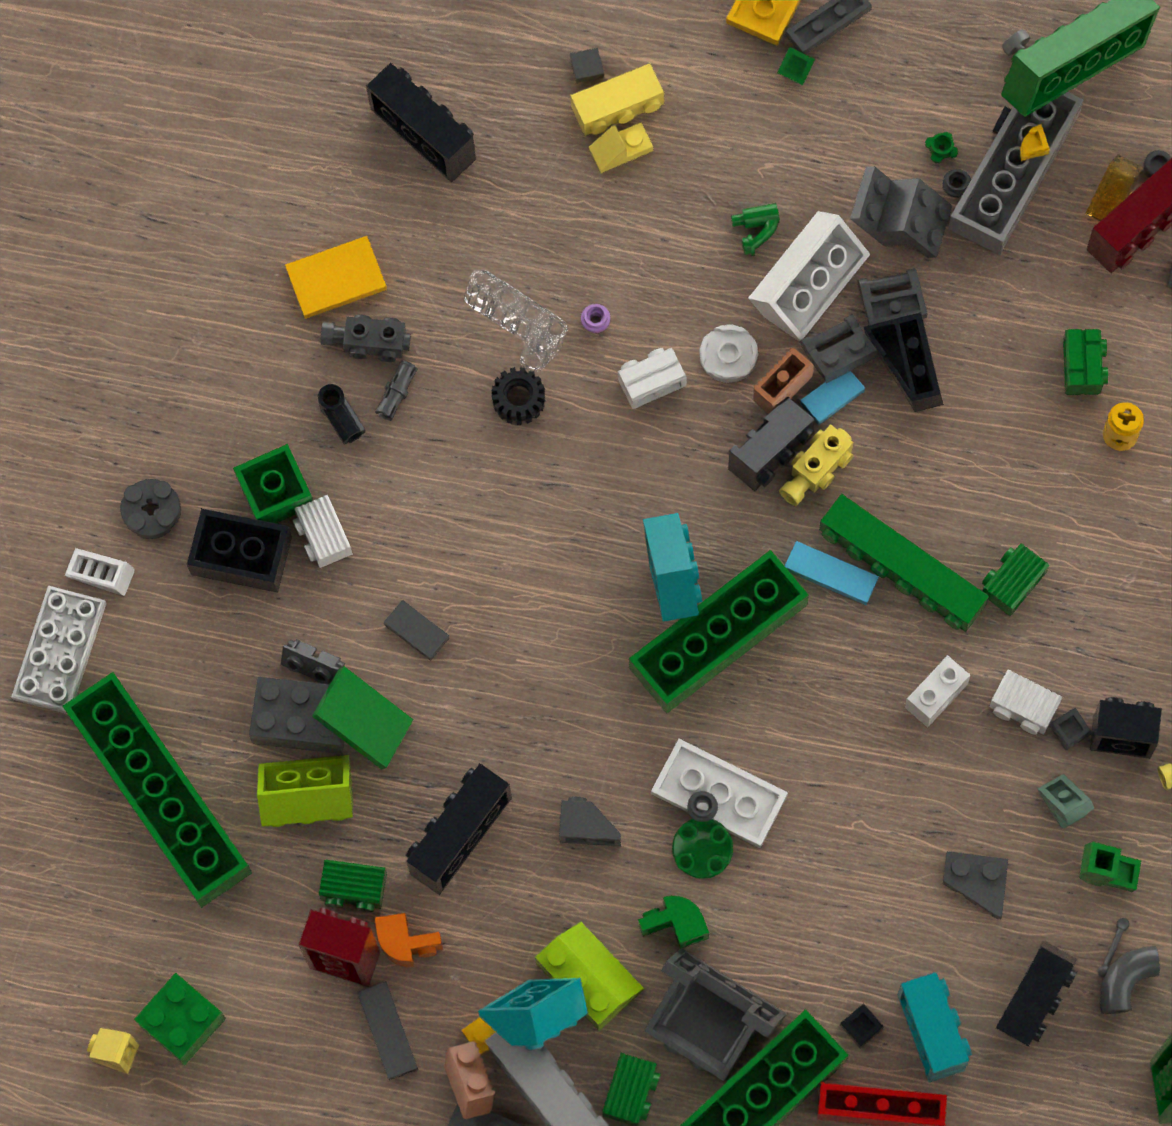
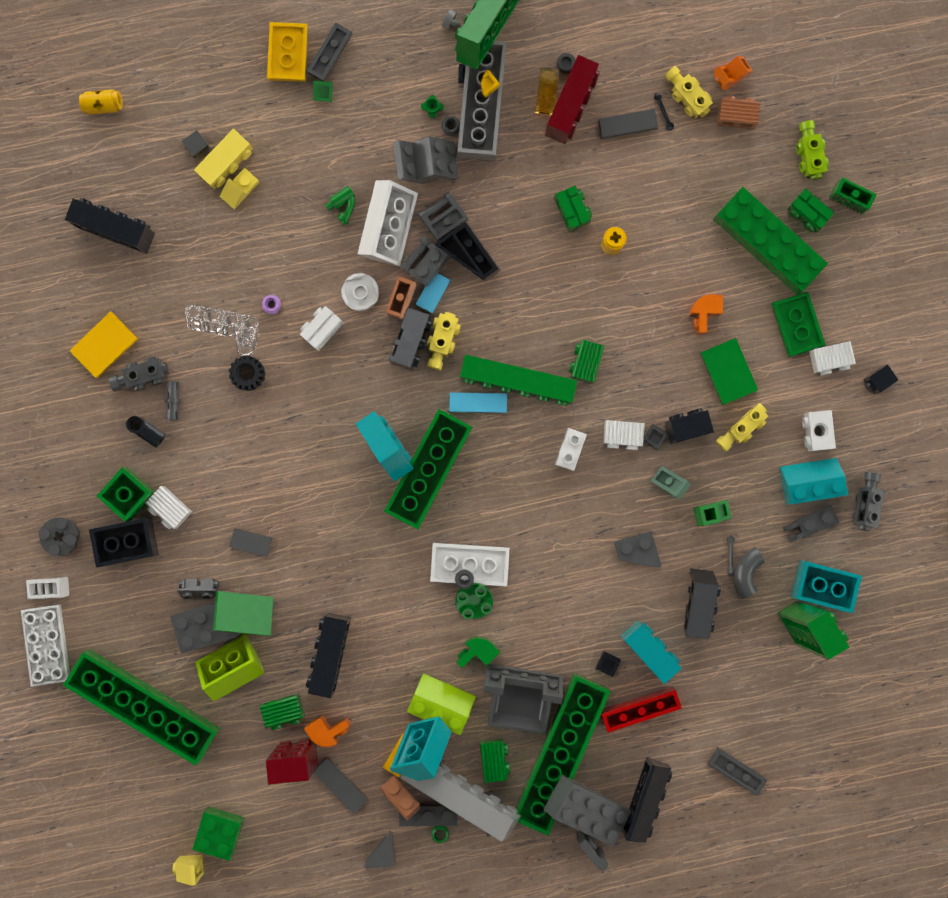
camera: 30 degrees left, 15 degrees up
(585, 824) = (400, 617): dark grey slope -> none

